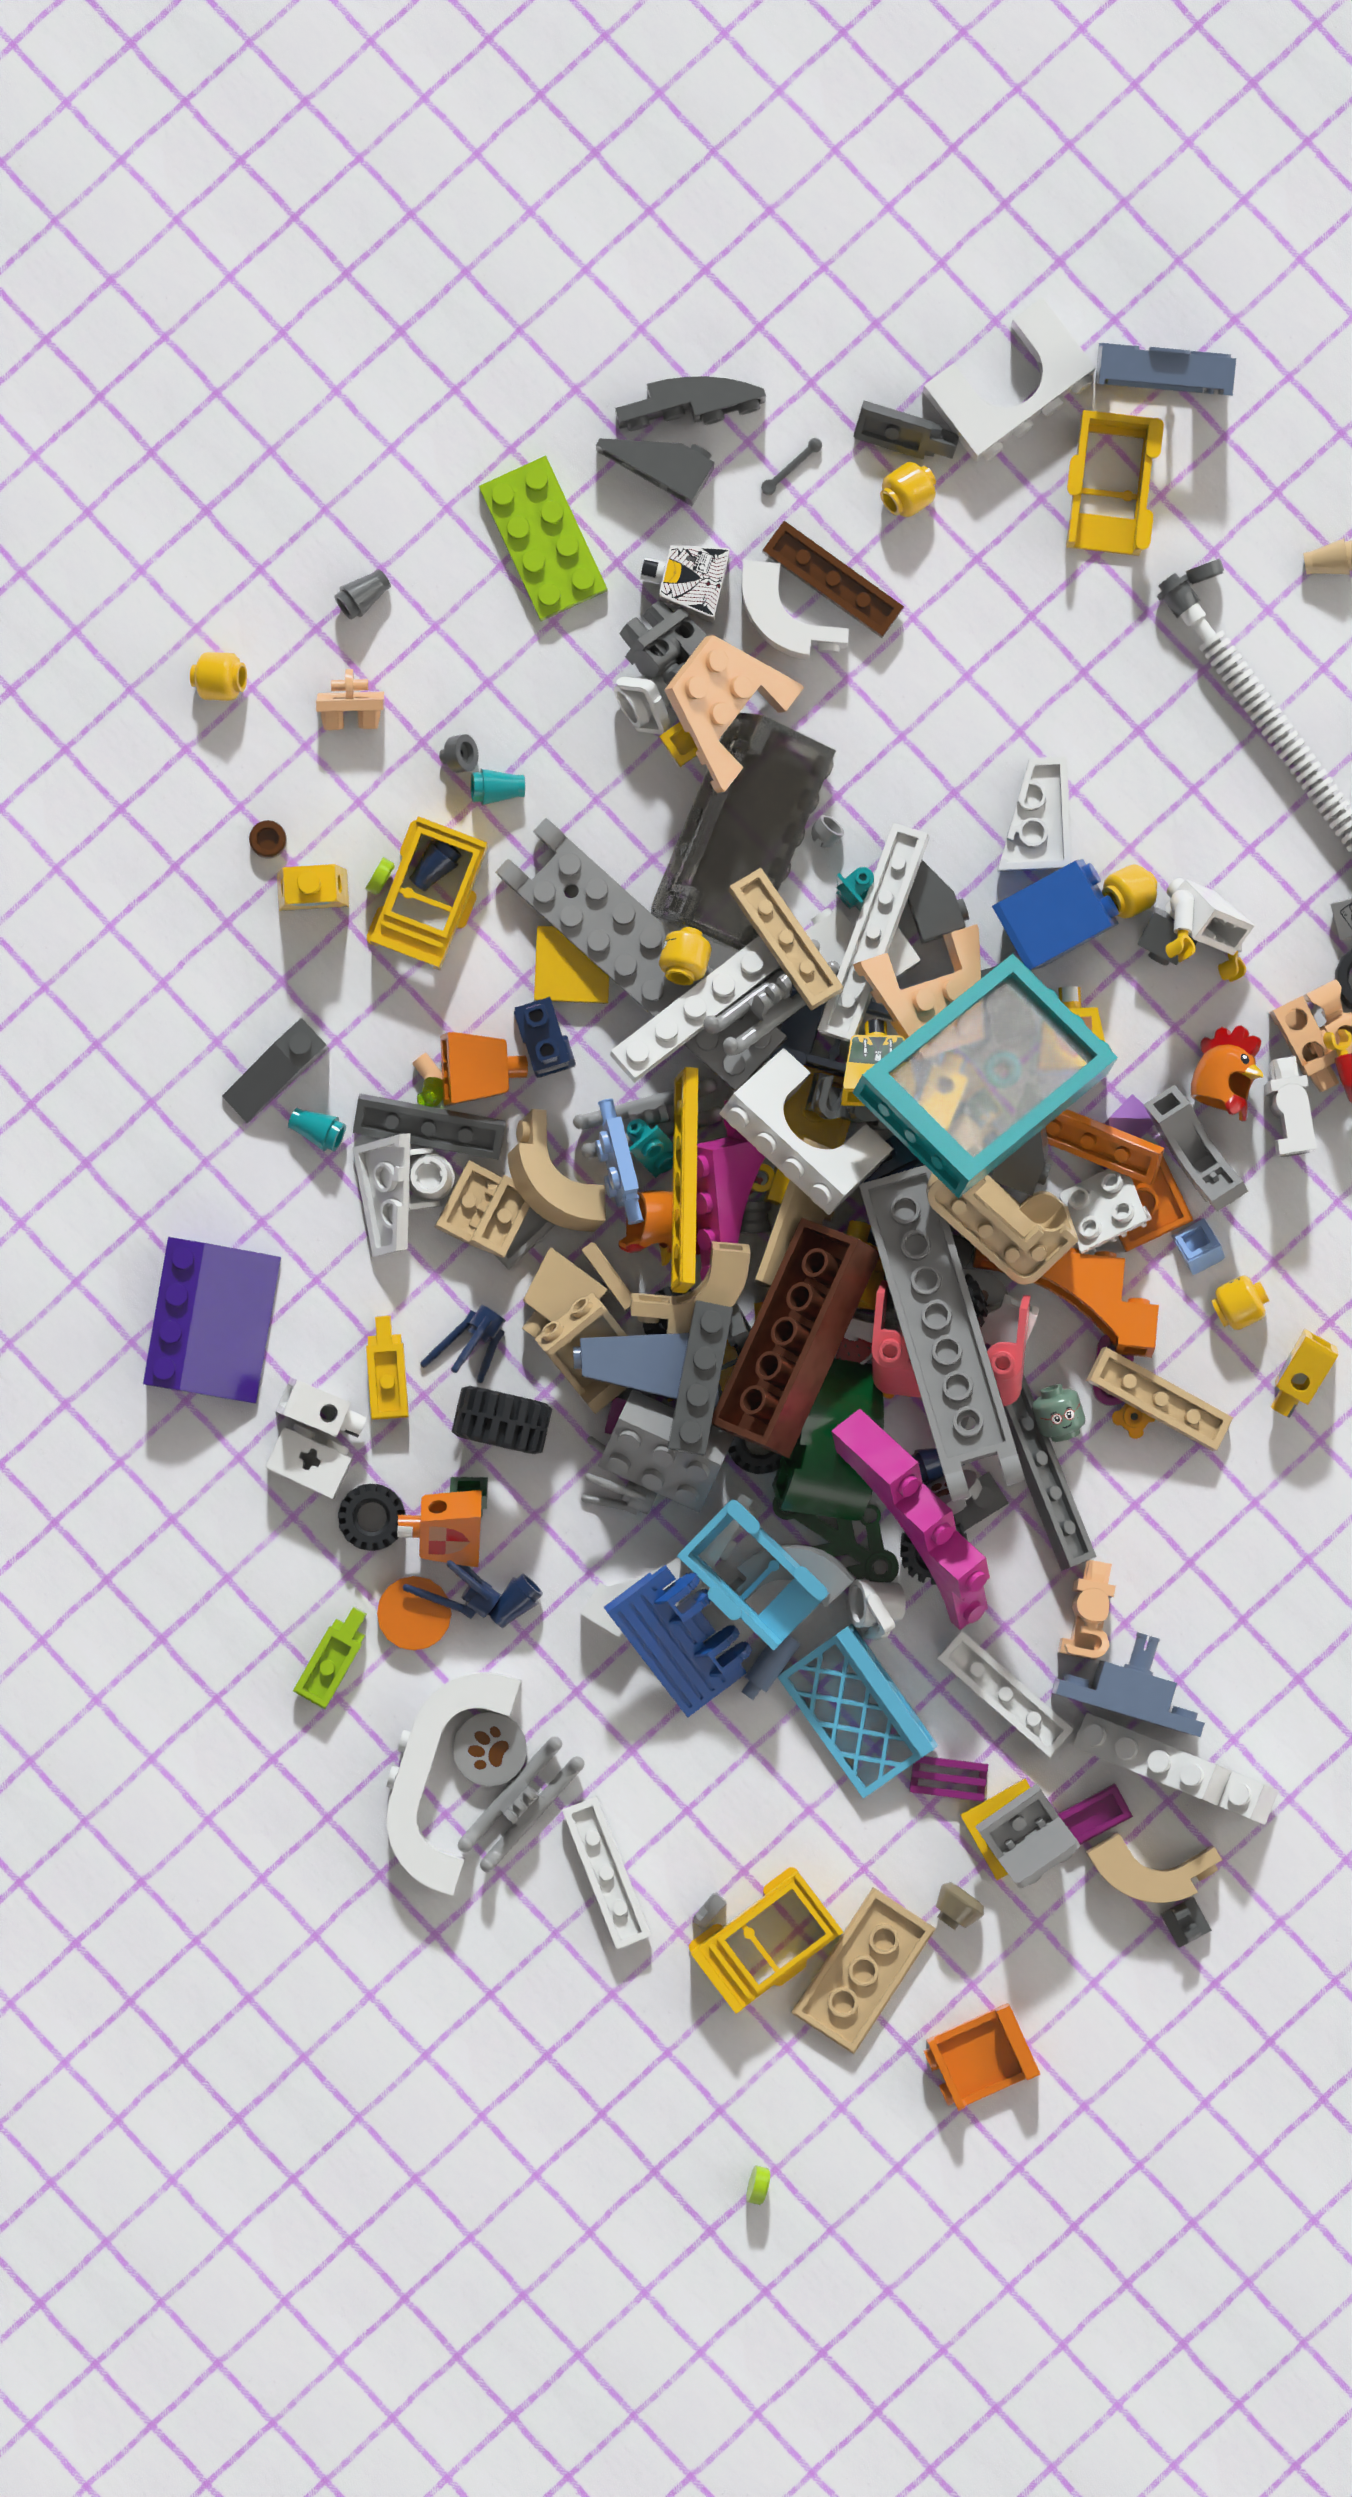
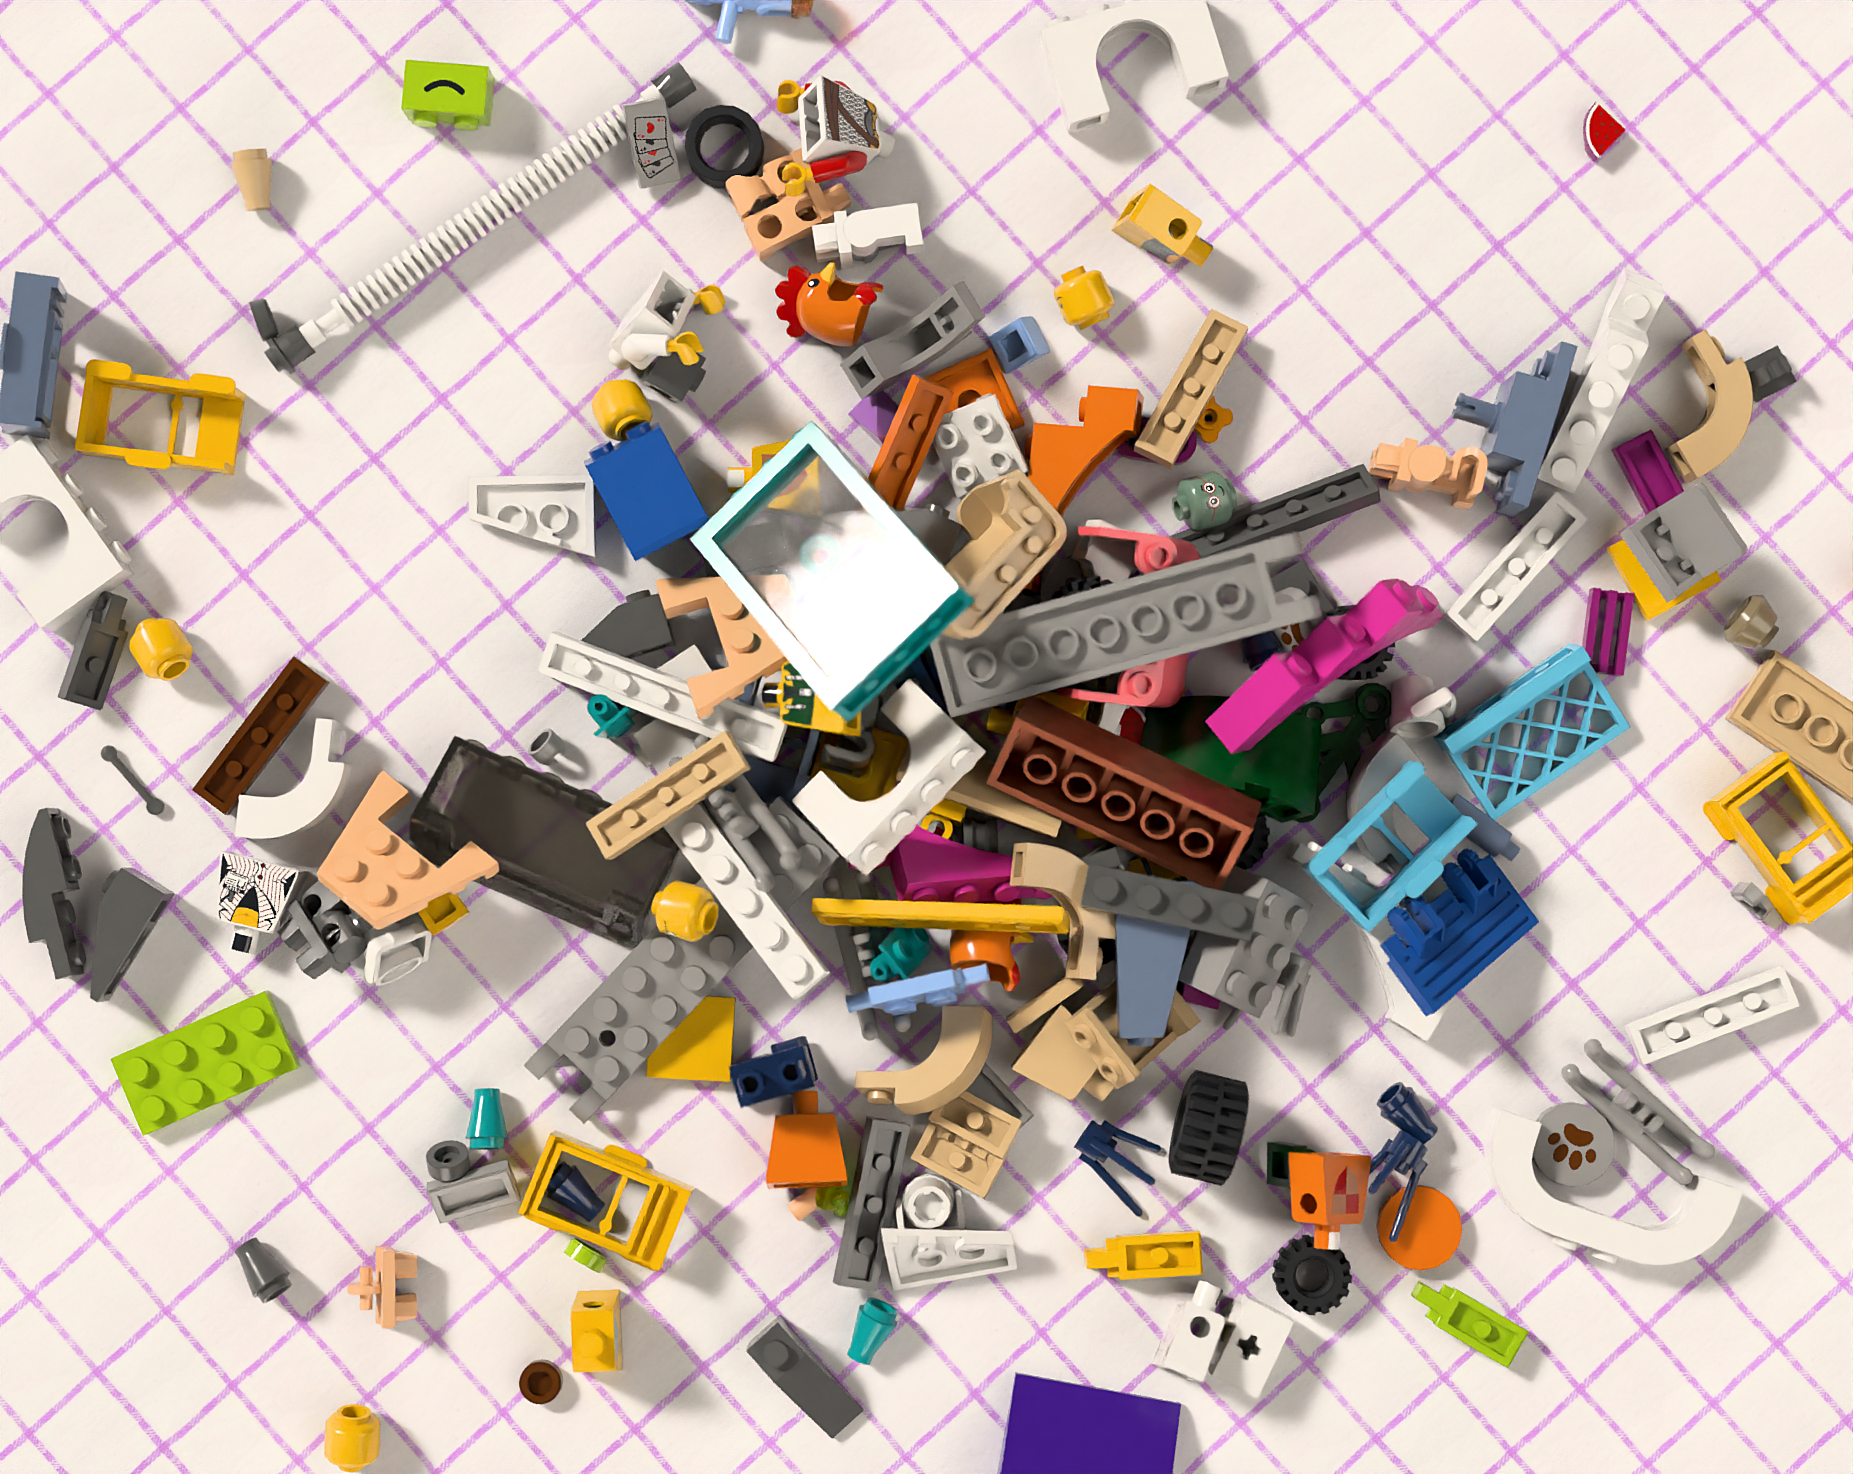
camera: 90 degrees left, 0 degrees up
(433, 777) = (474, 1192): none -> light grey tile

